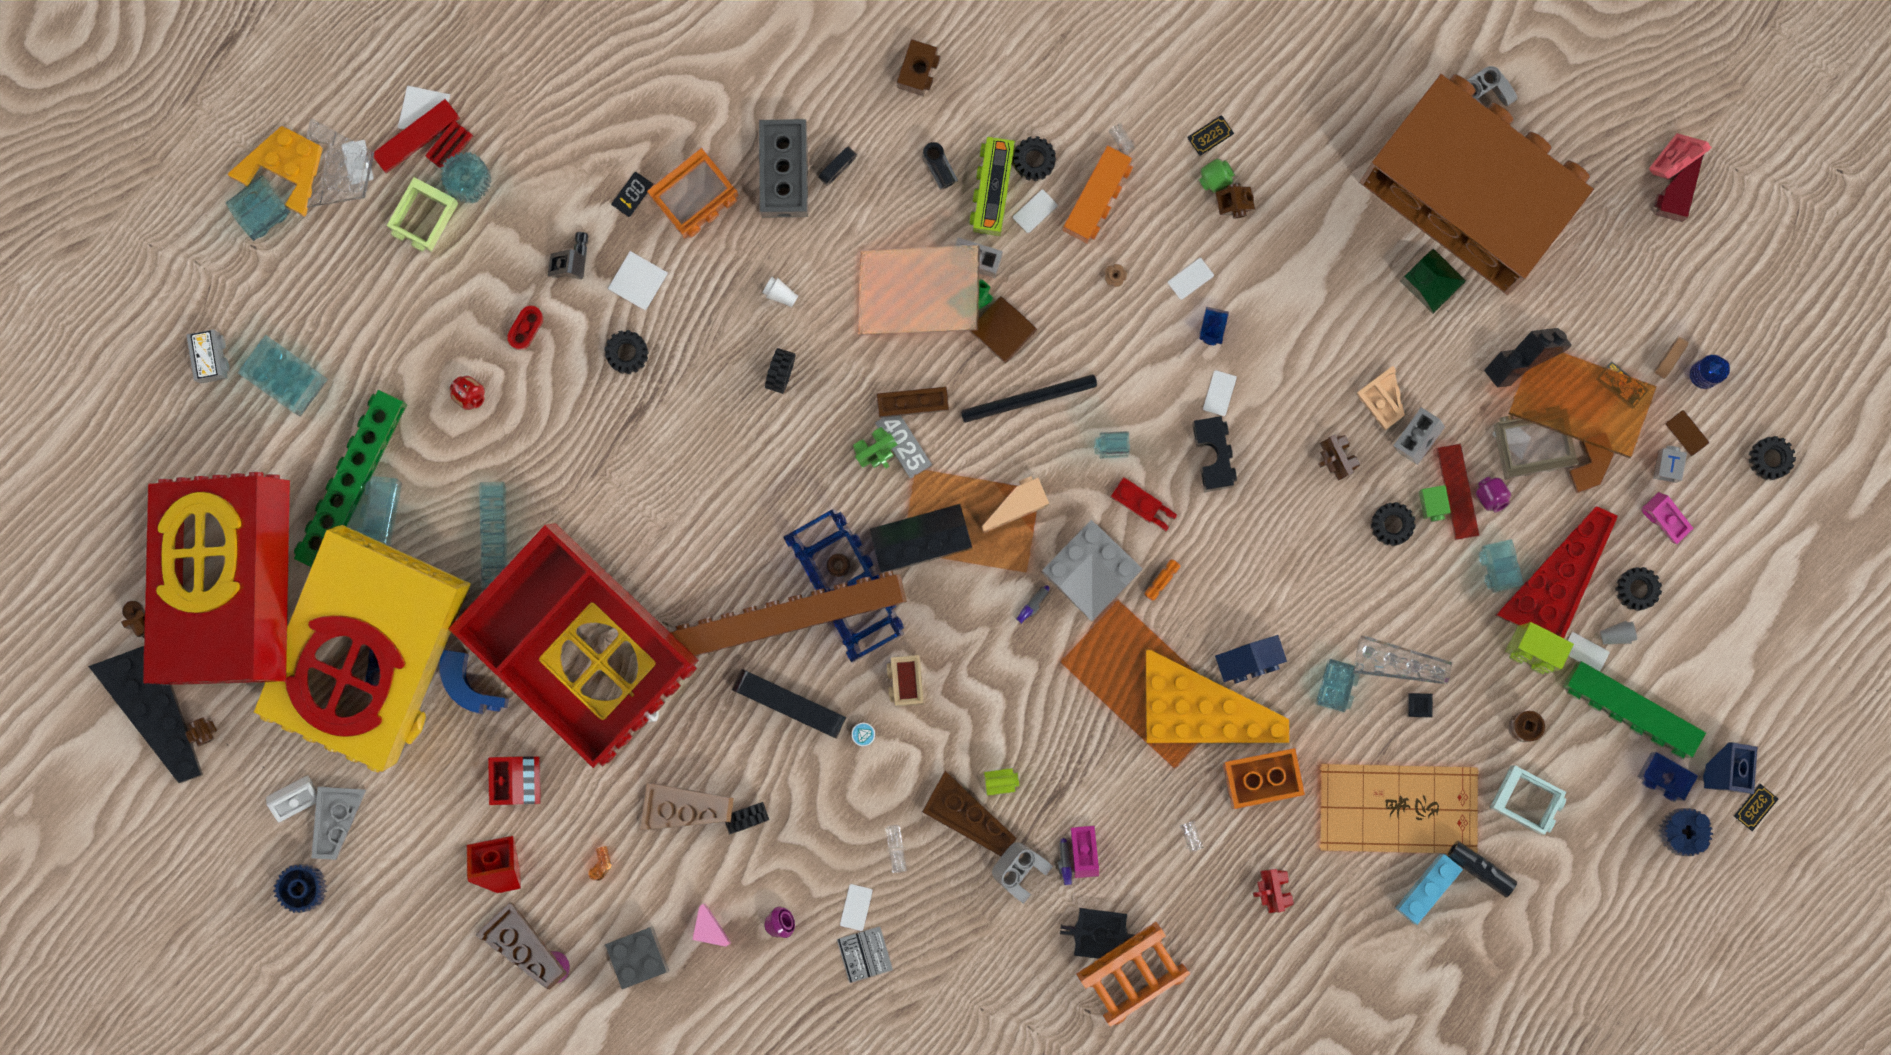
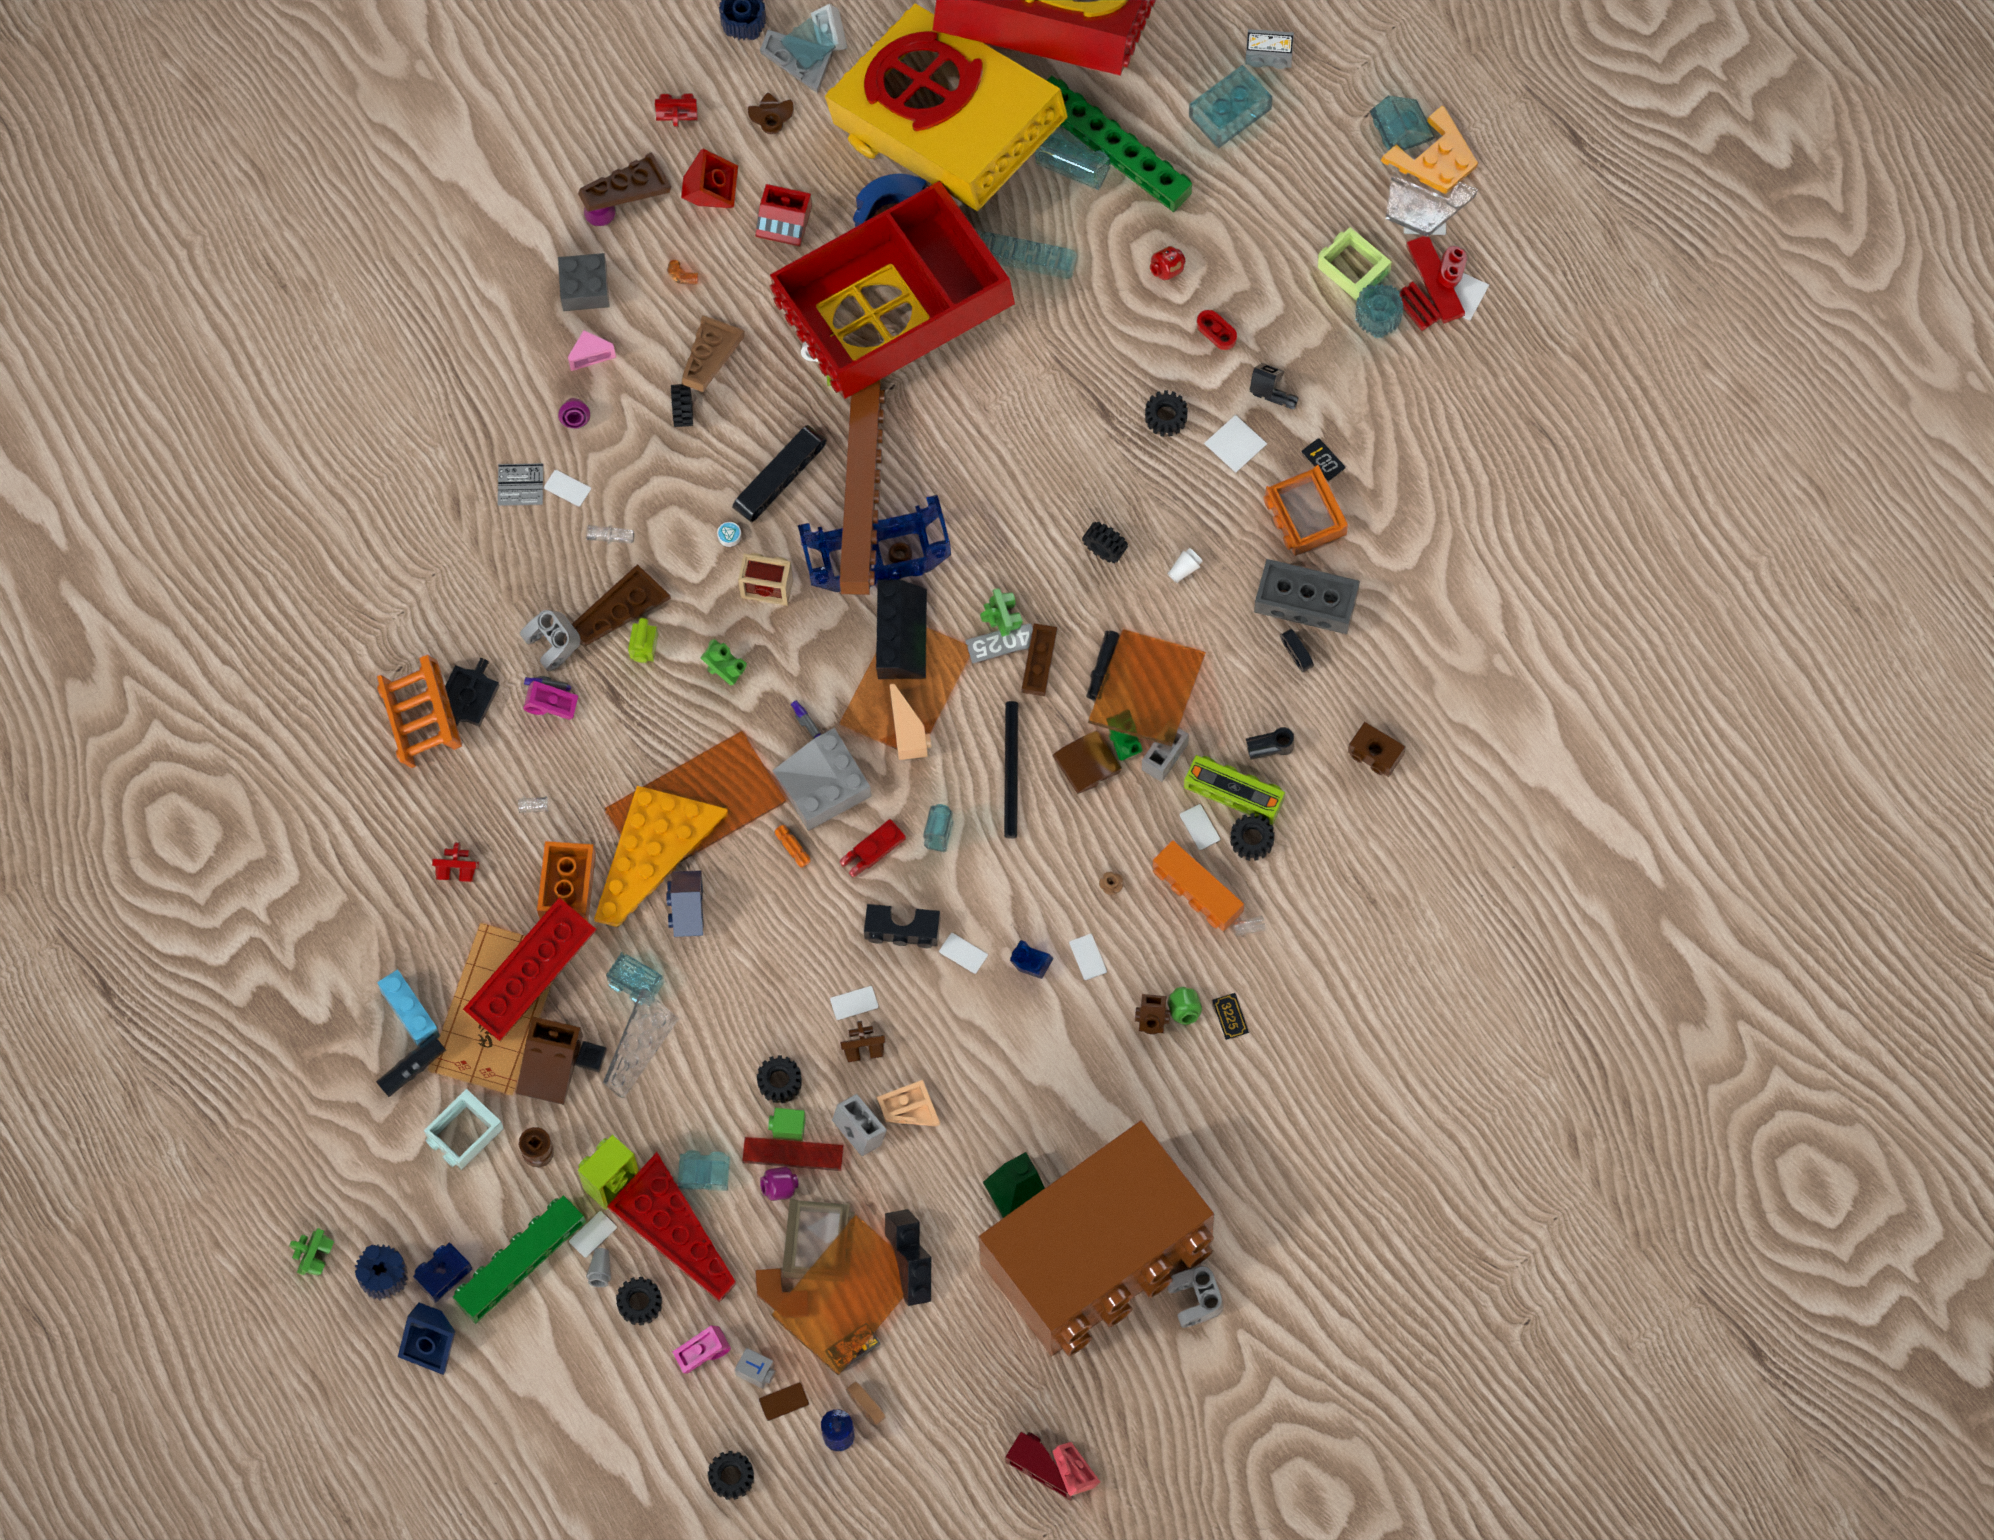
camera: 105 degrees right, 15 degrees down
(318, 812) = (808, 44): none -> clear light blue piece
(396, 121) = (1454, 262): none -> red plate
(398, 828) = (771, 111): none -> reddish brown plate
(424, 924) = (676, 109): none -> red hips
(899, 341) = (1104, 658): none -> black pin
(1001, 696) = (723, 662): none -> bright green hips
(1296, 479) = (854, 1003): none -> white sticker
(1362, 784) = (529, 969): none -> red plate
(1439, 740) = (549, 1060): none -> reddish brown slope
(1685, 907) = (309, 1263): none -> bright green hips
(1756, 807) = (383, 1356): black sticker -> none

